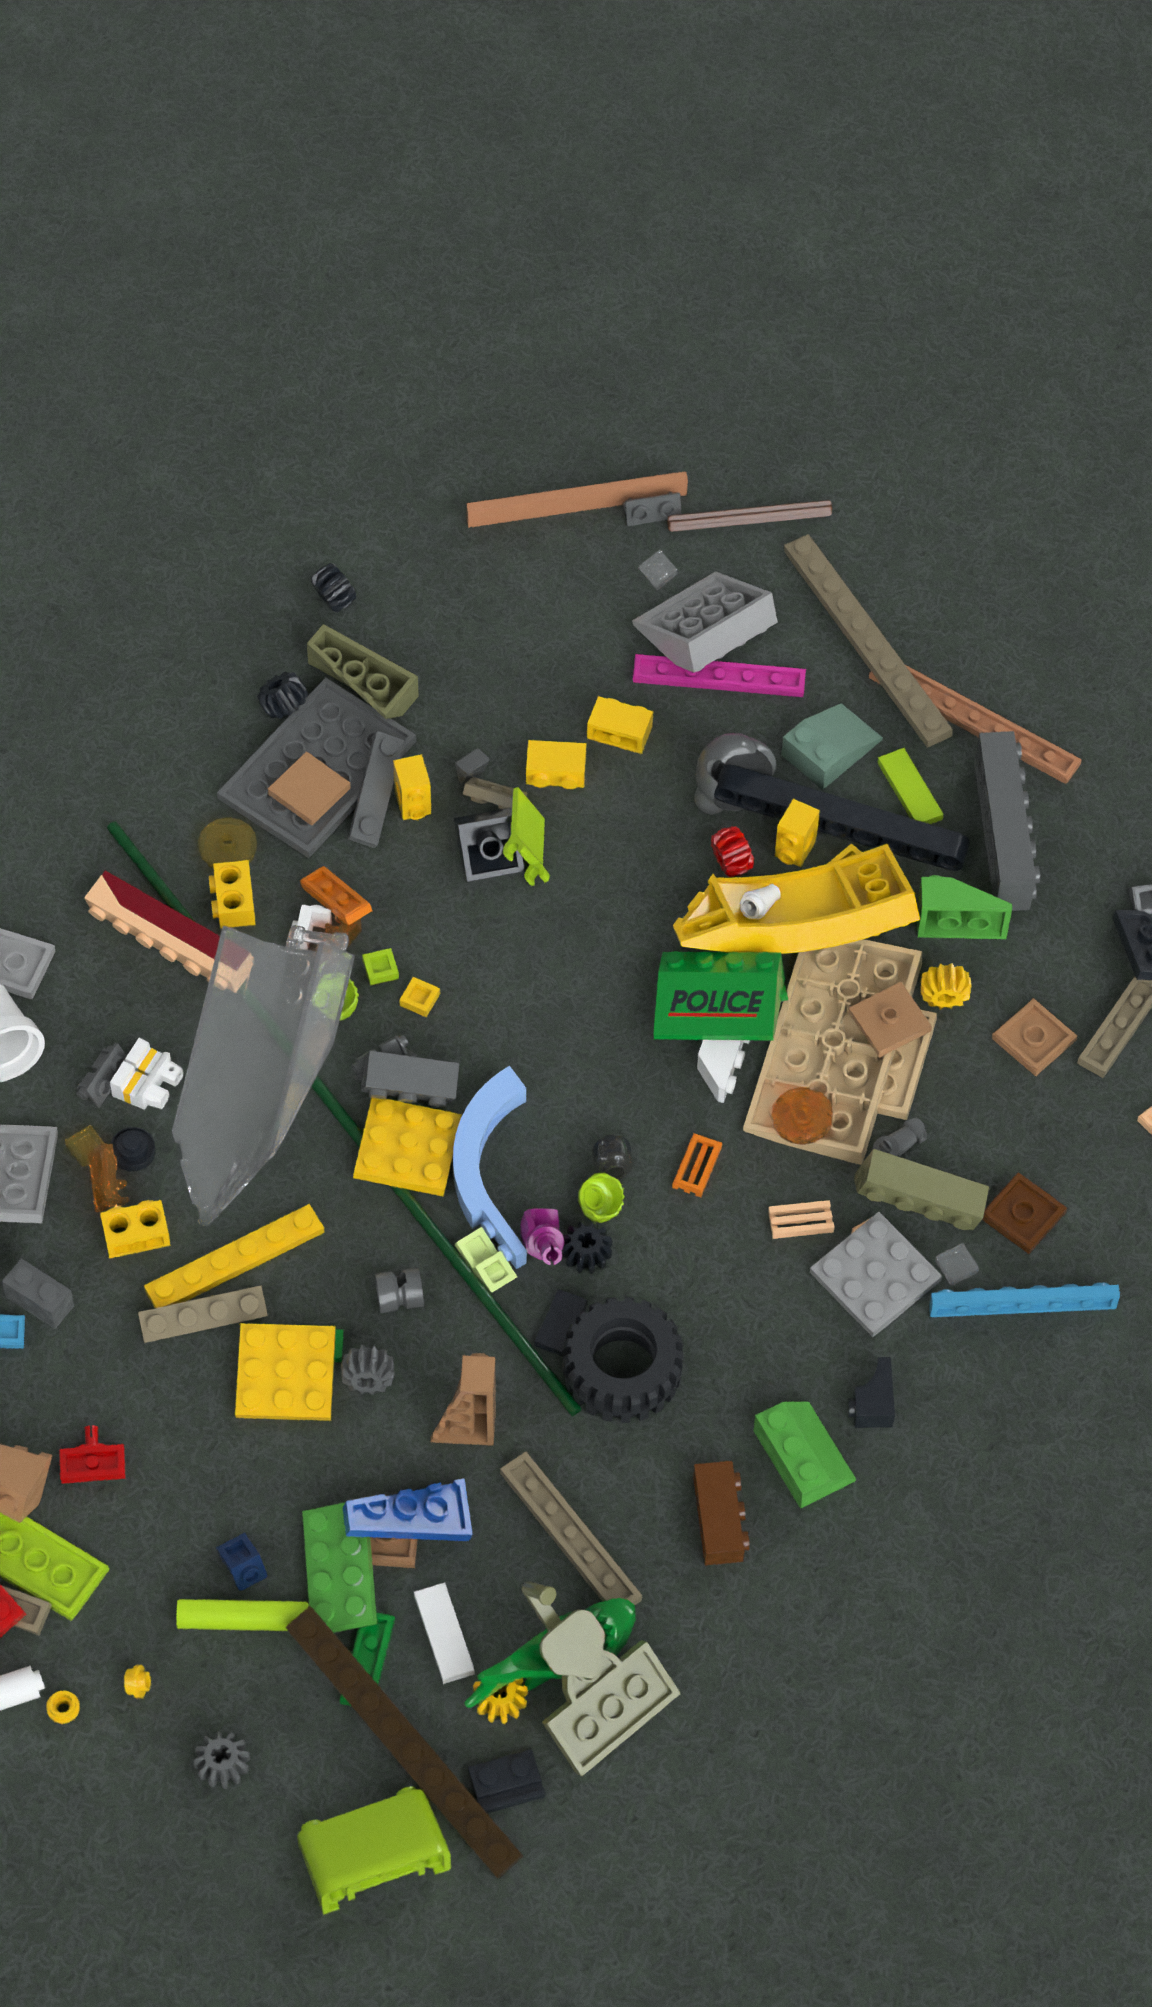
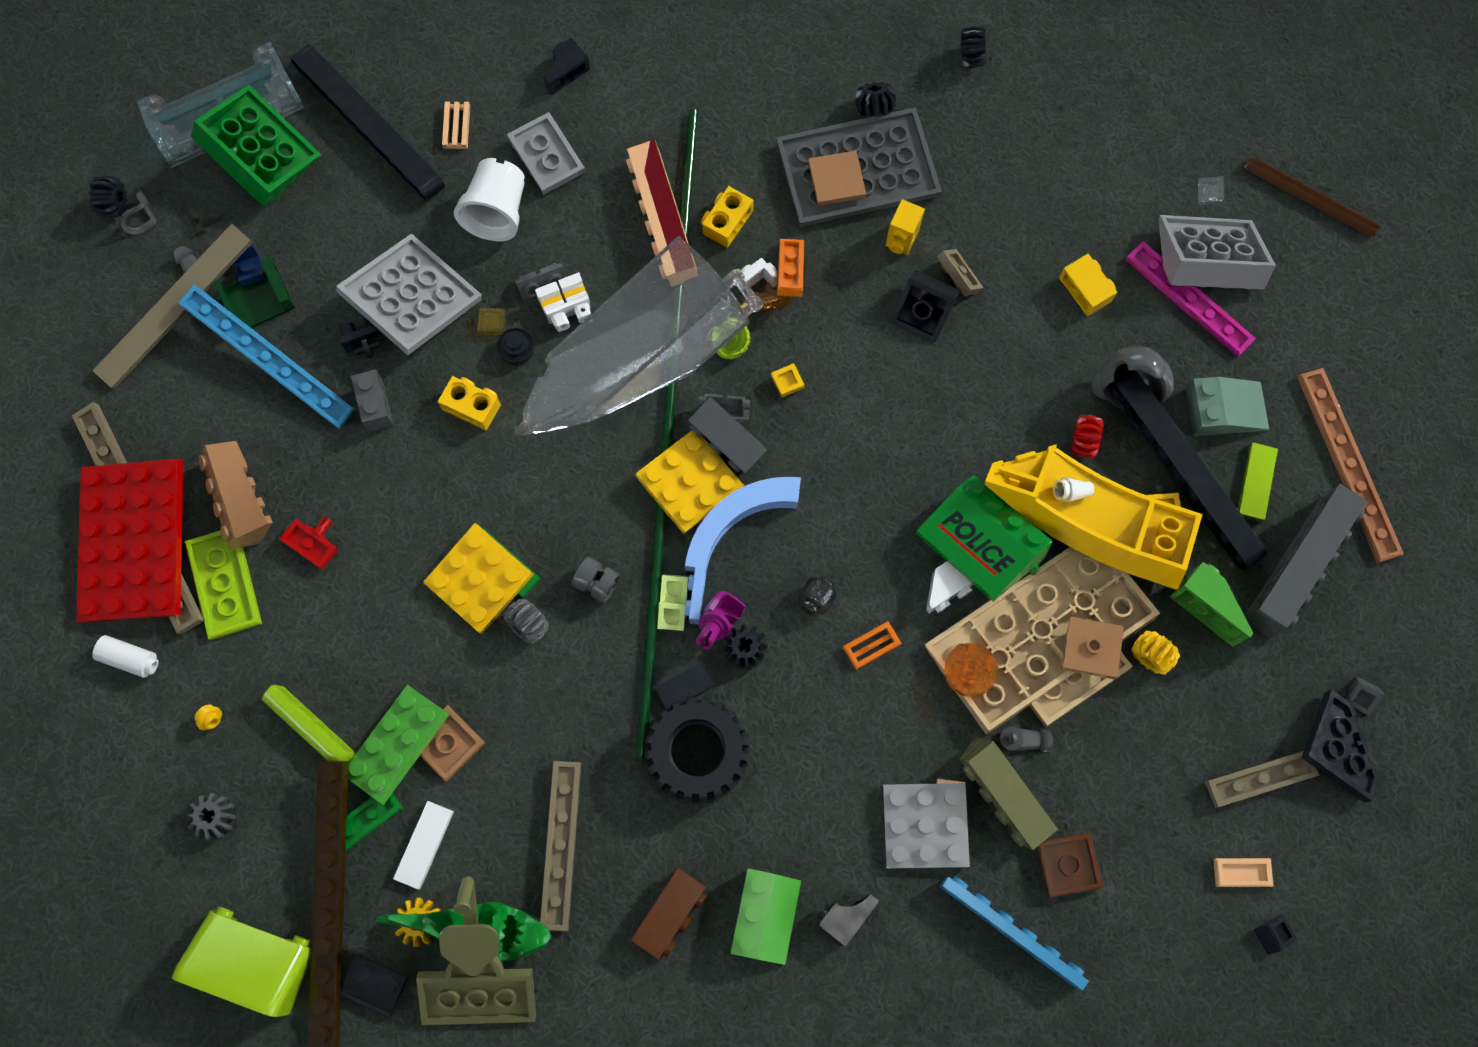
camera: 40 degrees right, 15 degrees up
(59, 1698) = (147, 690): yellow plate -> none
(104, 1182) = (485, 344): clear orange plate -> none
(202, 1314) = (462, 495): dark tan plate -> none
(235, 830) = (756, 189): clear yellow plate -> none
(235, 1258) = (516, 472): yellow plate -> none
(242, 1561) = (340, 687): dark blue bracket -> none
(373, 677) = (944, 132): olive wedge -> none
(375, 790) = (880, 211): dark grey plate -> none
(380, 966) = (780, 339): lime plate -> none
(427, 1514) = (475, 752): wing -> none
(471, 765) = (960, 240): dark grey slope -> none
(473, 1407) = (564, 706): medium nougat wedge -> none
(527, 837) = (952, 320): lime flag -> none
(555, 764) = (1019, 281): yellow brick -> none
(573, 499) = (1197, 99): nougat tile -> none
(601, 1197) = (783, 619): lime hair -> none
(652, 508) = (1244, 142): dark grey hinge -> none
(796, 833) = (1143, 457): yellow brick -> none
(801, 1208) = (929, 754): light nougat tile -> none
(868, 641) = (1318, 352): dark tan plate -> none
(957, 1264) = (988, 865): clear plate -> none
(1034, 1037) = (1190, 737): medium nougat tile -> none

